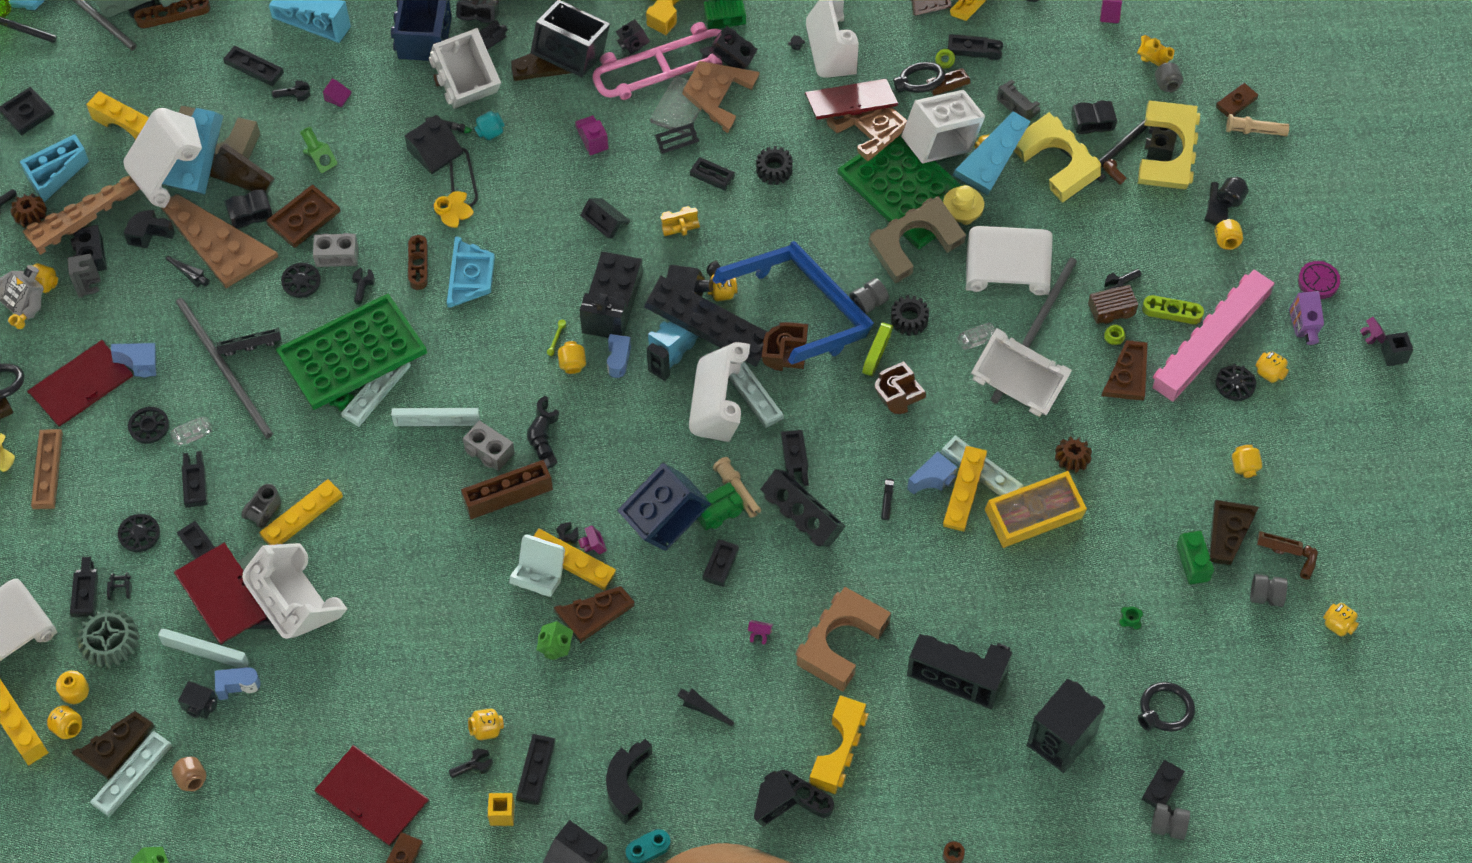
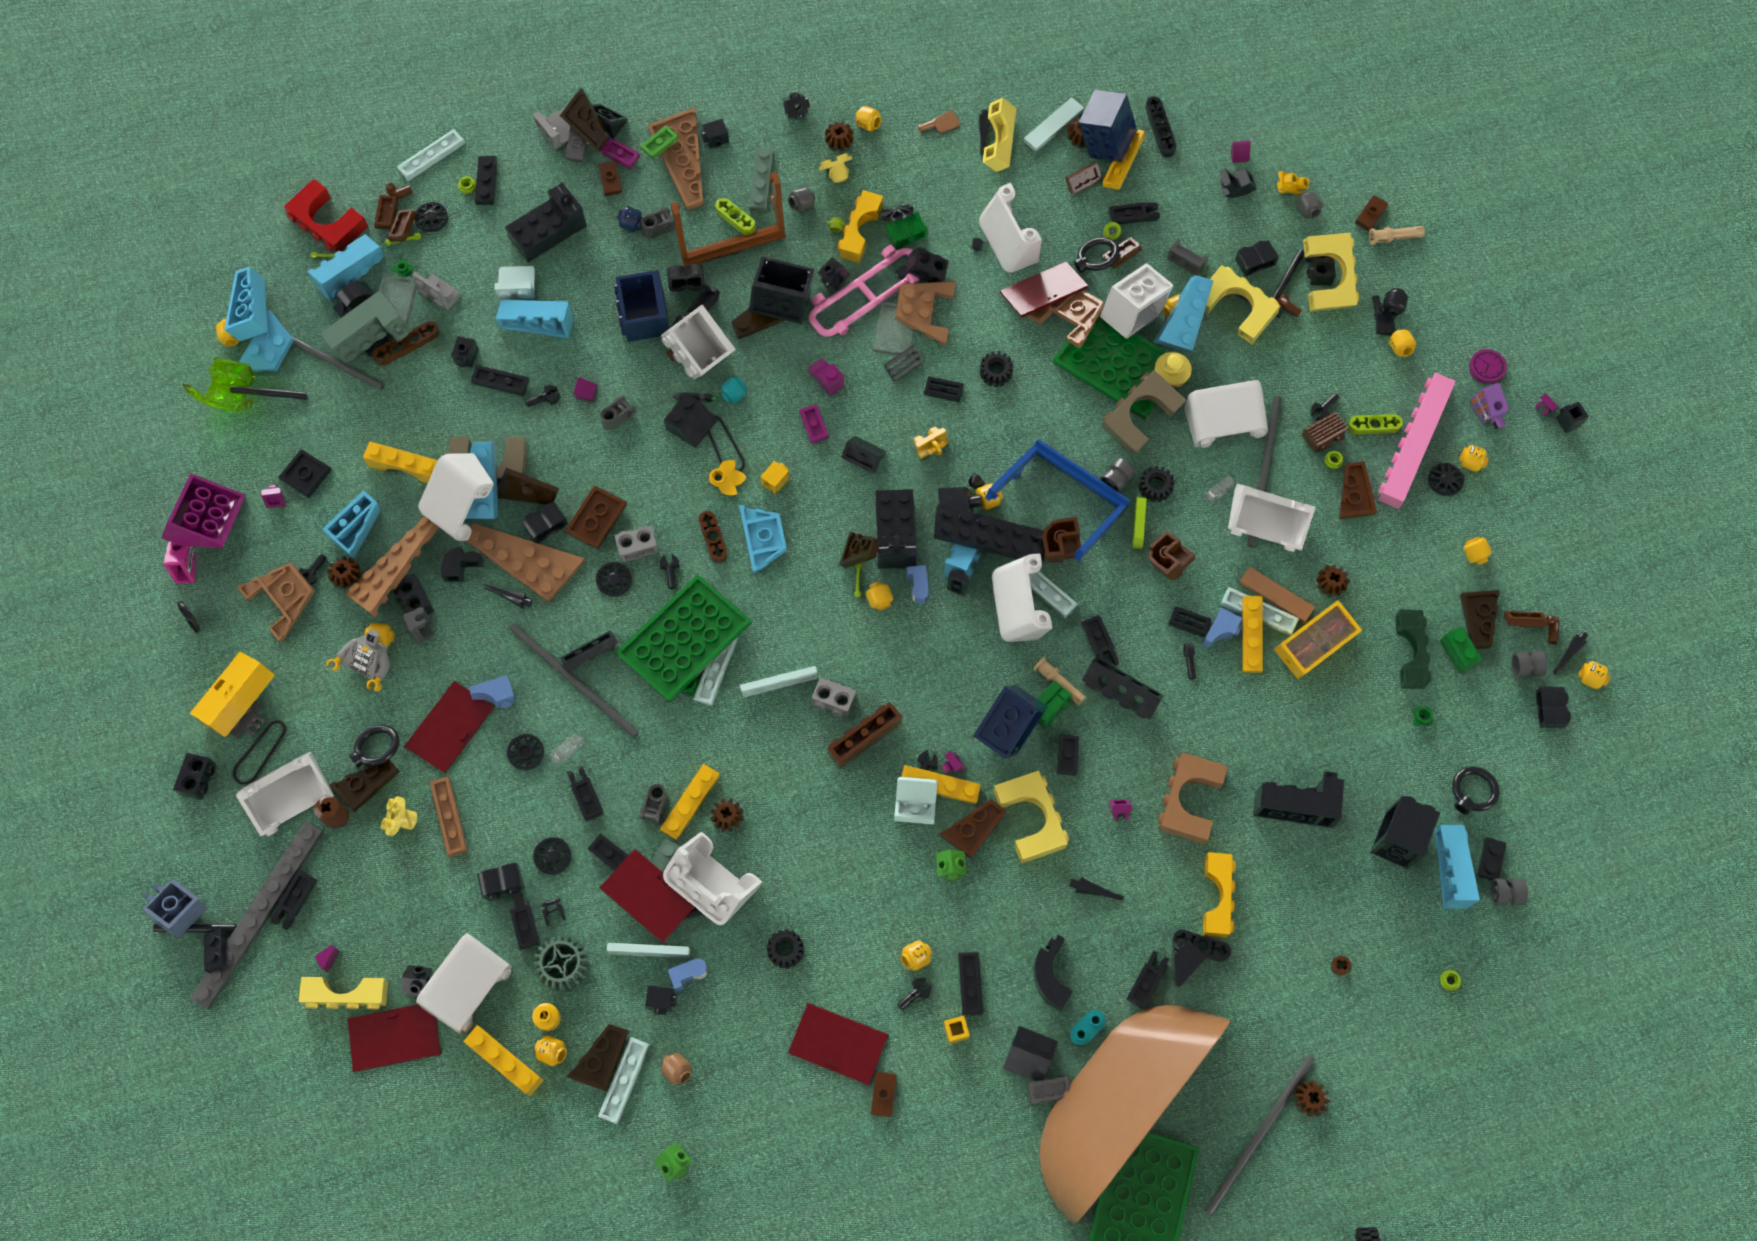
camera: 15 degrees left, 10 degrees up
(75, 542) = (500, 881): none -> black brick
(227, 31) = (464, 352): none -> black brick
(317, 149) = (587, 450): bright green bracket -> none
(332, 527) = (719, 819): none -> reddish brown gear
(351, 695) = (782, 961): none -> black tyre
(359, 122) = (619, 410): none -> dark grey piece
(503, 218) = (775, 477): none -> yellow brick
(538, 431) = (873, 676): black piece -> none
(562, 176) = (813, 424): none -> magenta plate
(565, 303) = (859, 549): none -> dark brown wing
(672, 640) = (1033, 789): none -> light yellow arch
(729, 815) = (1147, 982): none -> black hinge
(897, 463) = (1190, 629): none -> black tile
(1005, 454) = (1276, 594): none -> medium nougat tile
(1095, 41) = (1237, 184): none -> black brick
(1116, 781) = (1455, 867): none -> medium azure wedge
(1135, 567) = (1412, 626): none -> clear green arch
(1282, 642) = (1552, 707): none -> black brick
(1330, 585) = (1575, 645): none -> black piece

